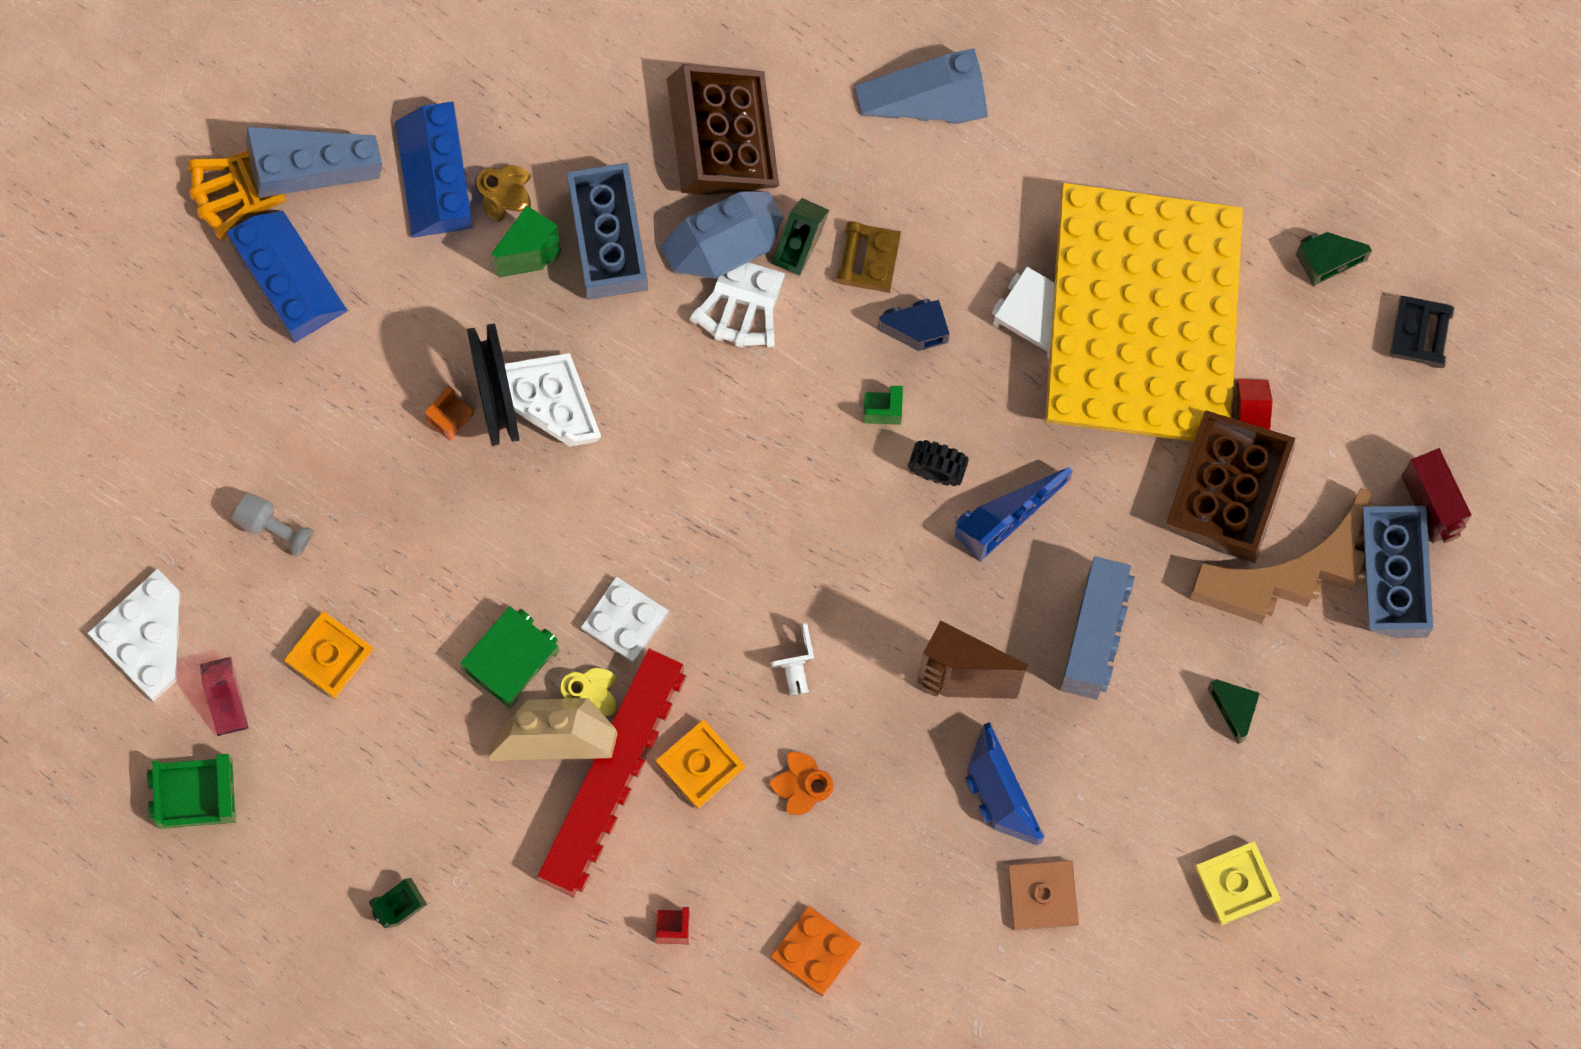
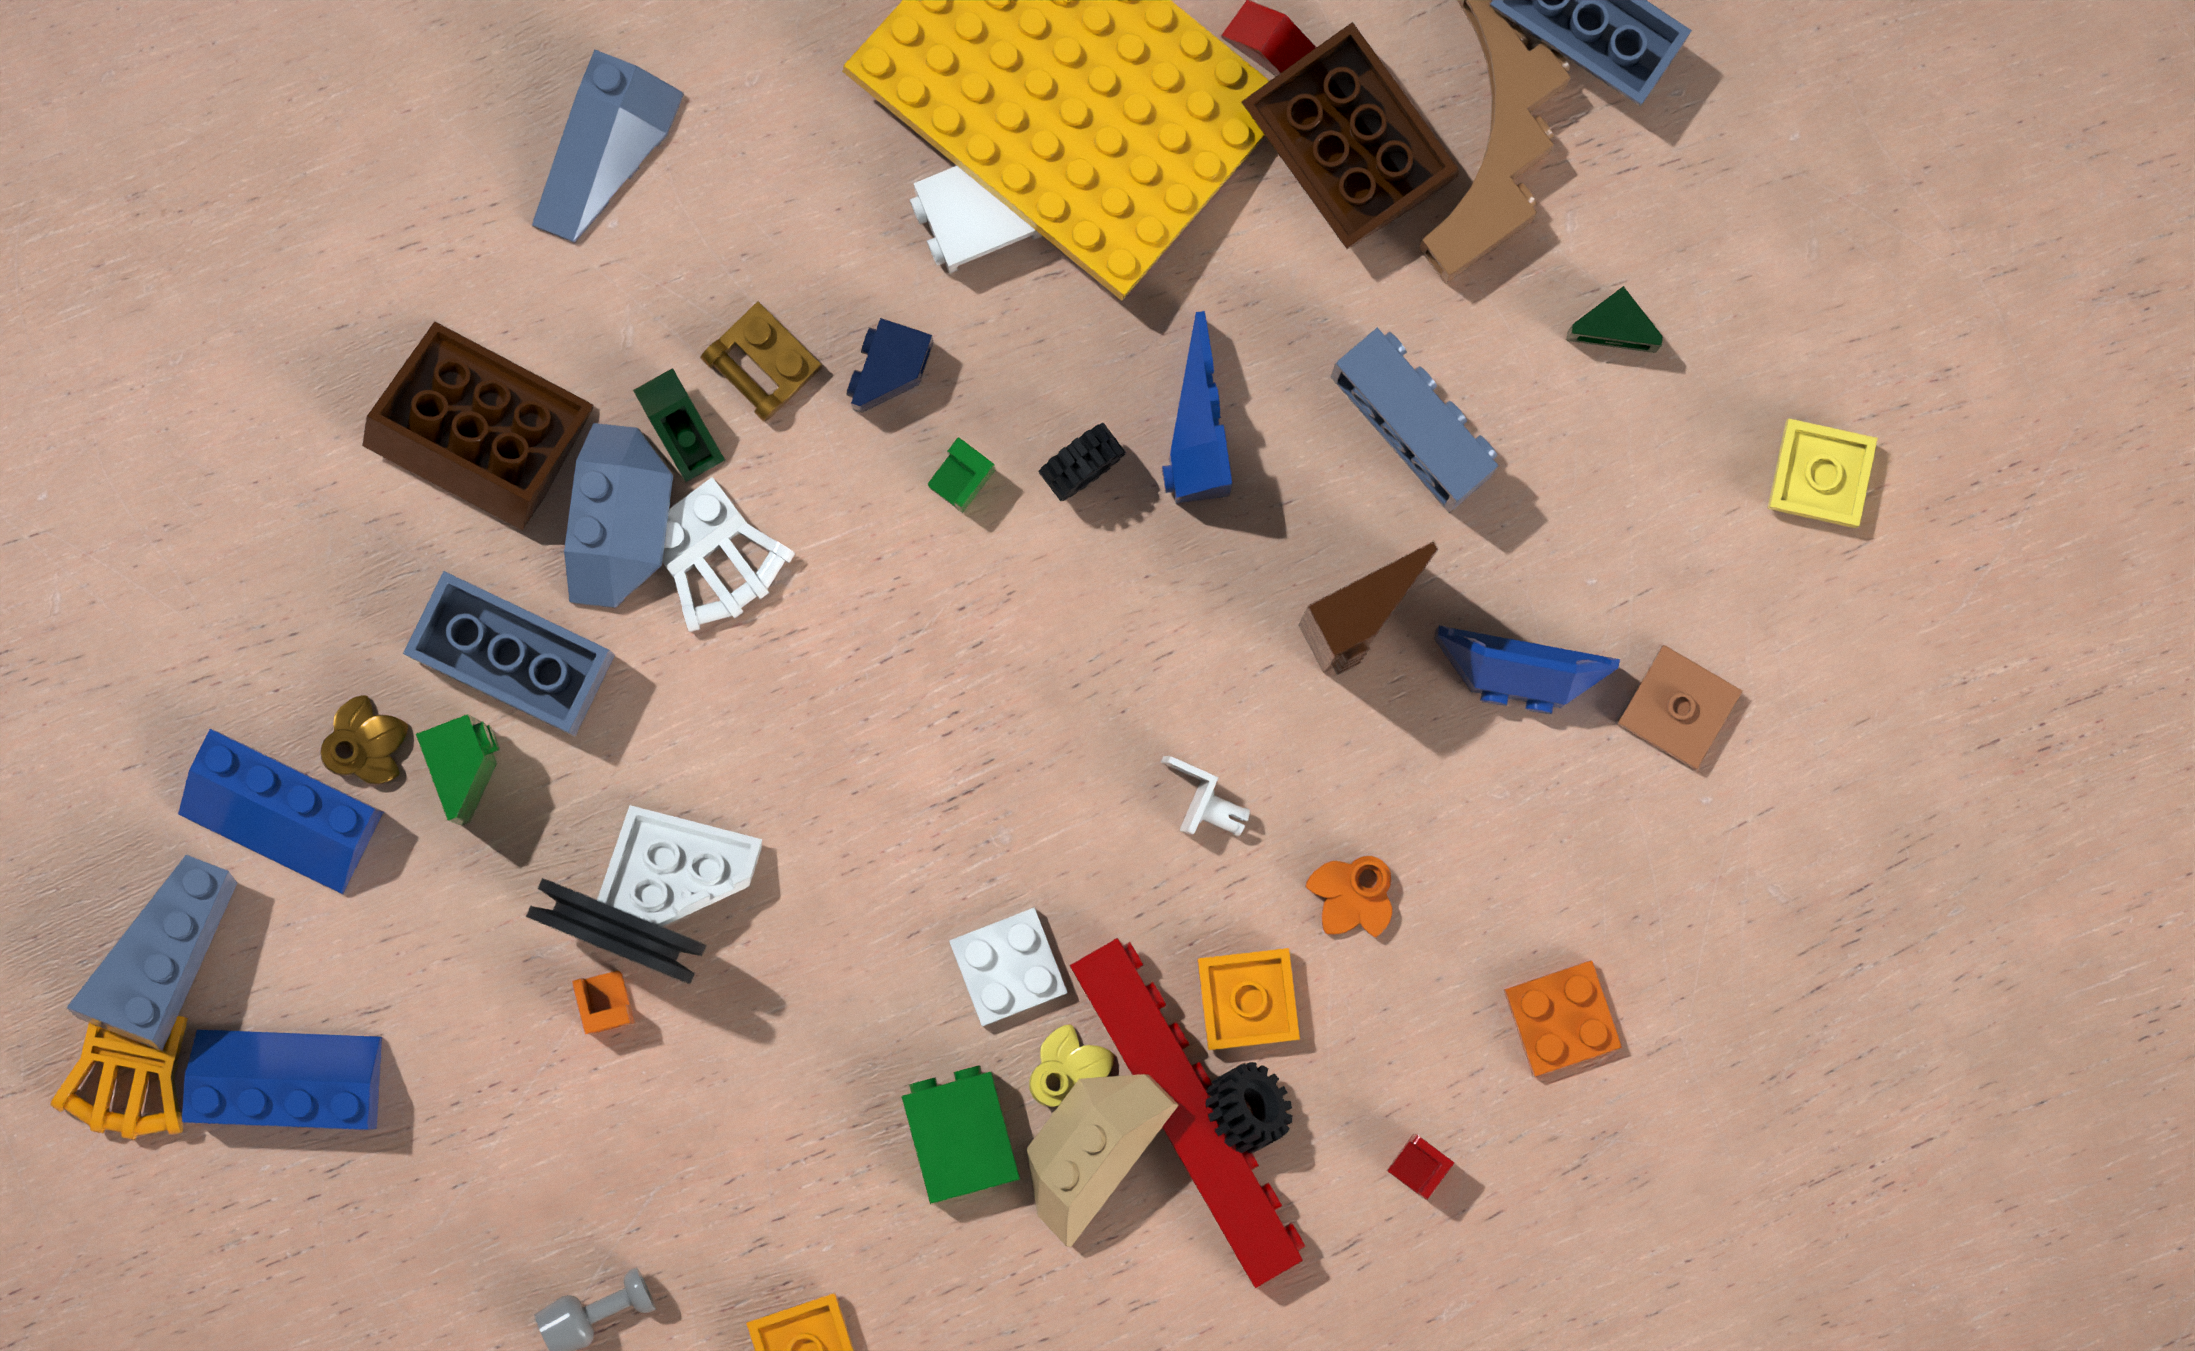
camera: 55 degrees left, 10 degrees up
(651, 806) = (1233, 1116): none -> black tyre

